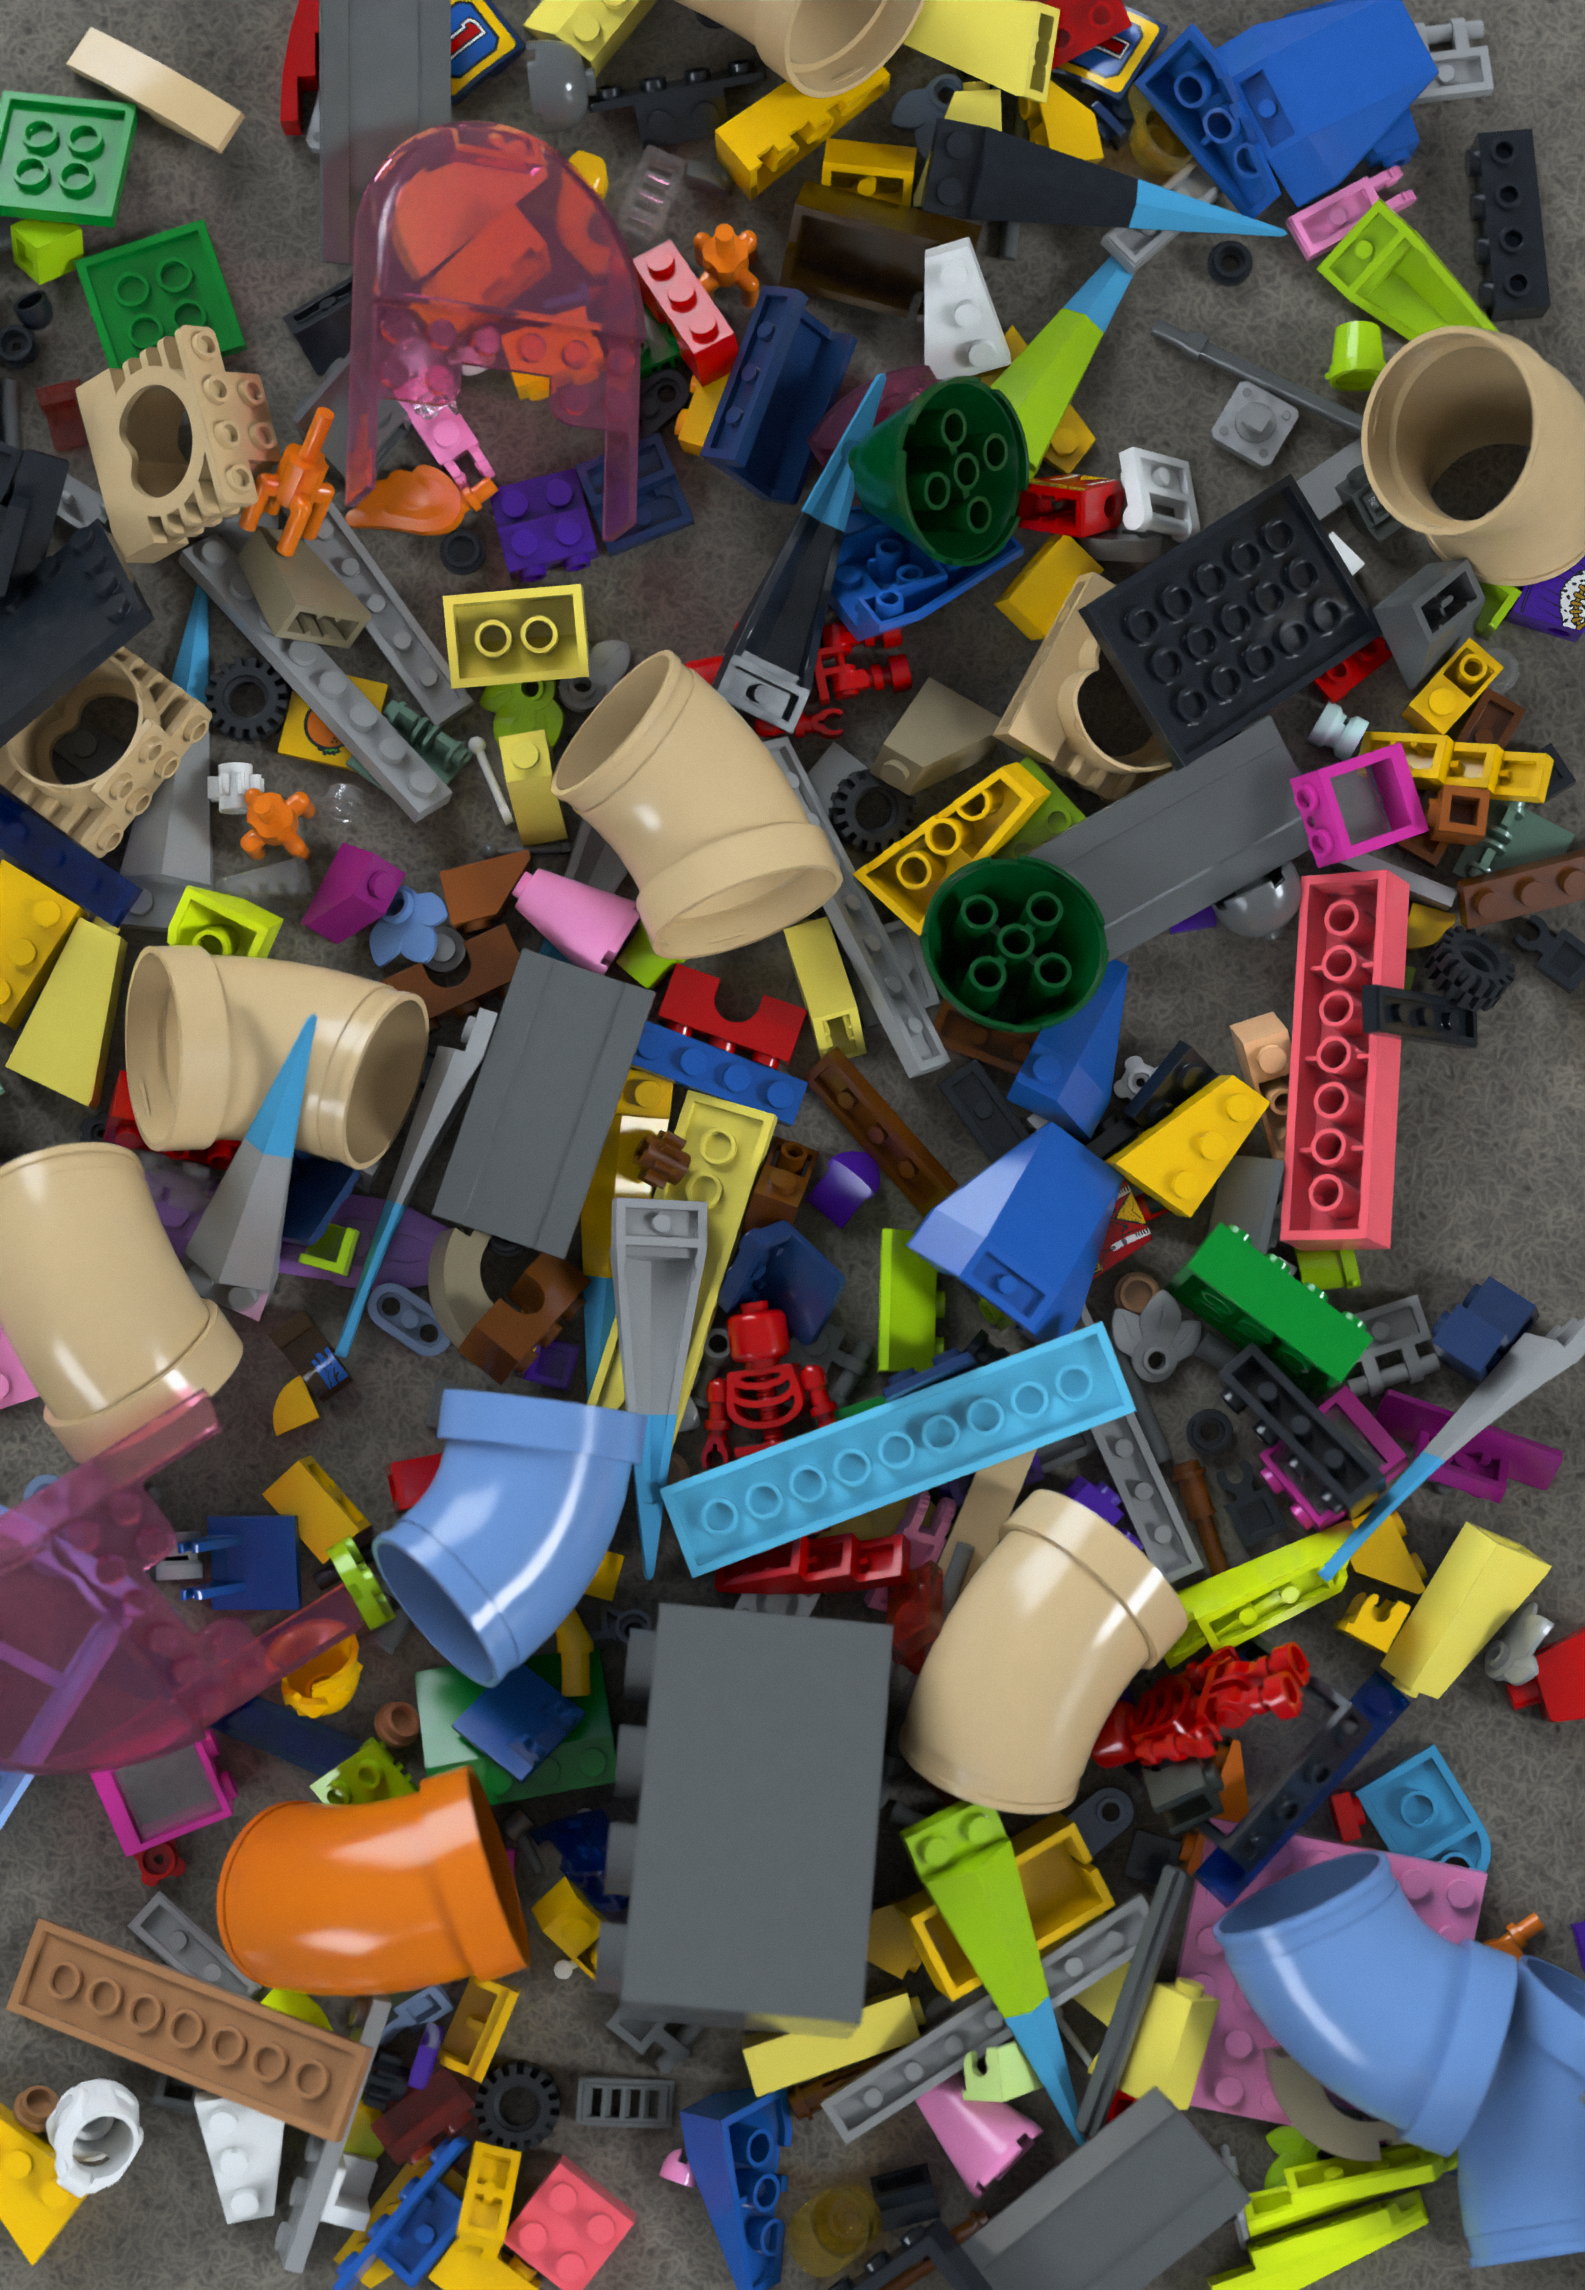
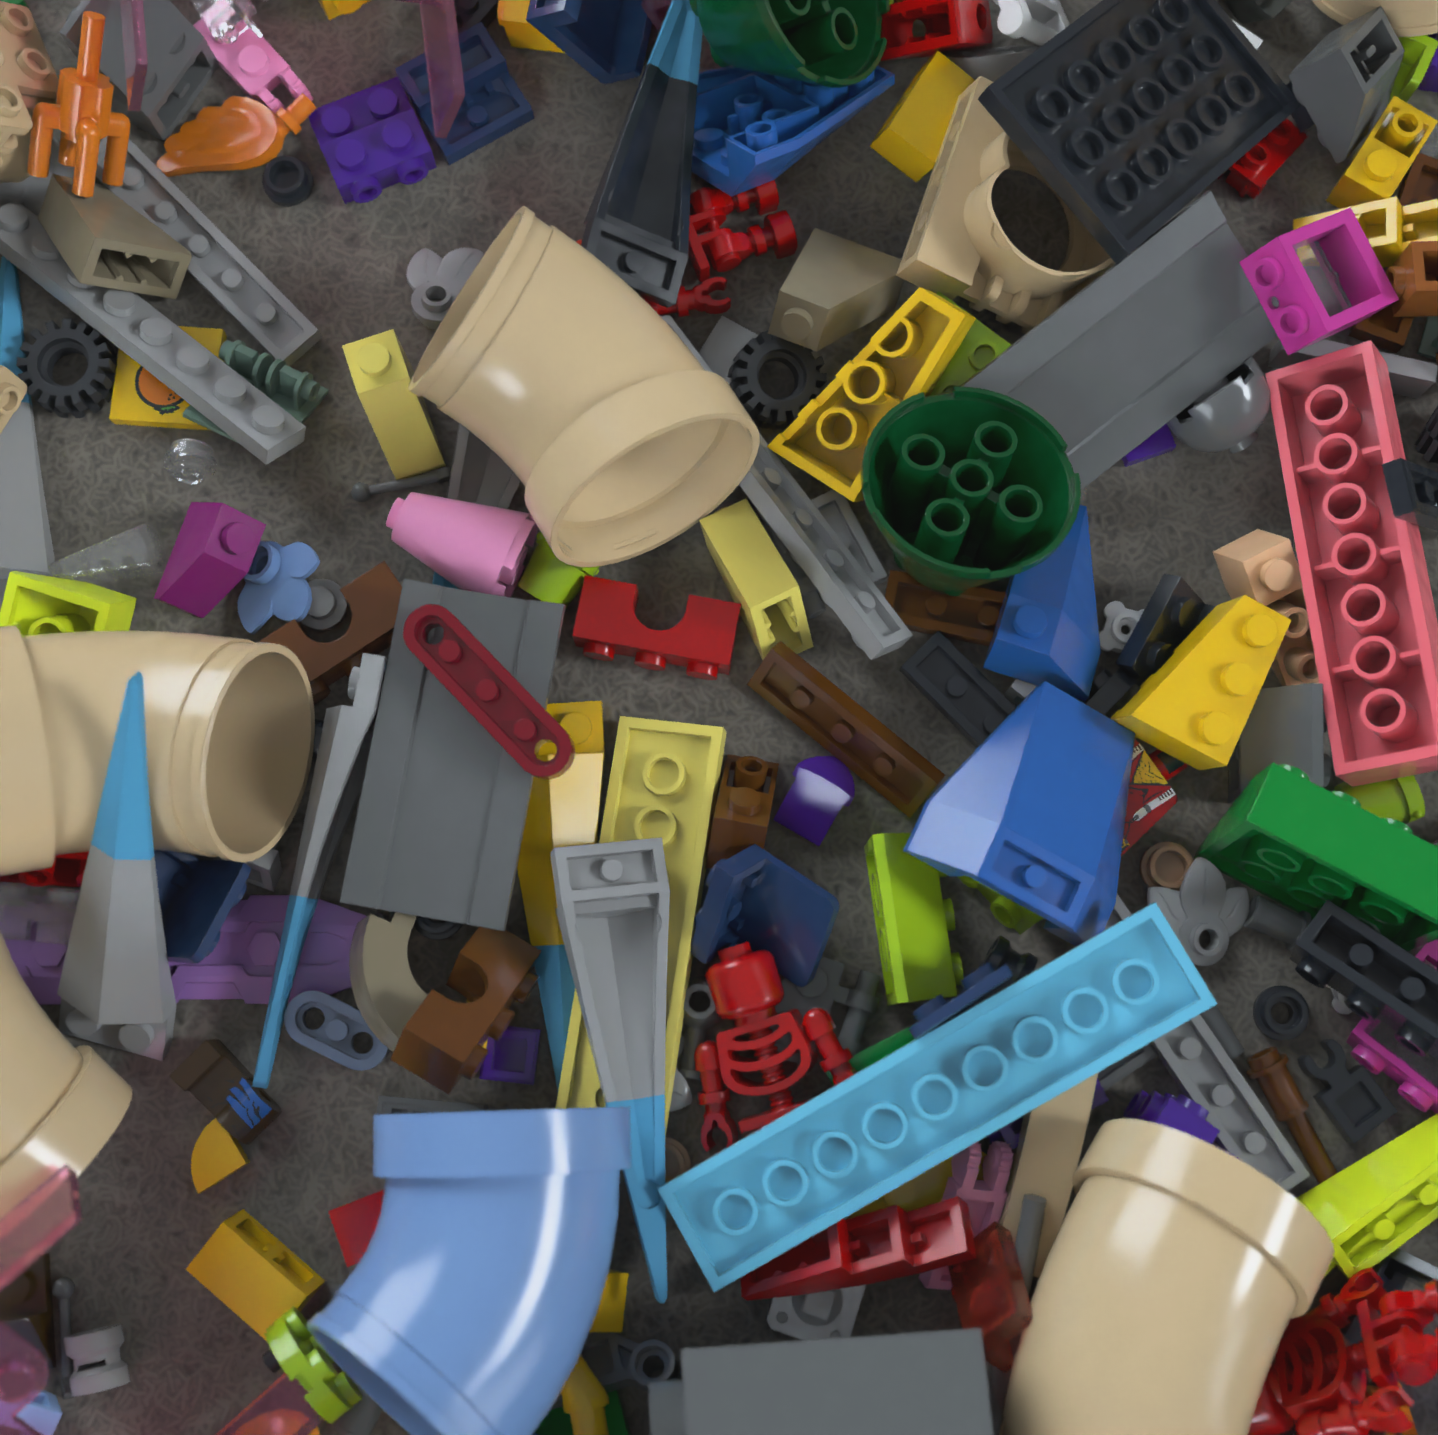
camera: 10 degrees left, 5 degrees down
(231, 786) = (65, 463): white gear -> none
(251, 1563) = (185, 1354): blue plate -> none
(275, 823) = (108, 488): orange plant -> none
(333, 1251) = (235, 963): lime panel -> none
(477, 746) = (332, 381): white hinge -> none
(483, 890) = (353, 531): dark orange slope -> none
(516, 636) = (353, 247): light yellow slope -> none
(521, 713) = (360, 320): lime plate -> none
(581, 1058) = (488, 691): none -> dark red plate
(661, 1159) = (601, 797): reddish brown gear -> none
(718, 1073) = (648, 691): blue plate -> none
(1338, 731) = (1263, 221): light aqua wheel -> none
(1426, 926) = (1412, 410): yellow tile -> none

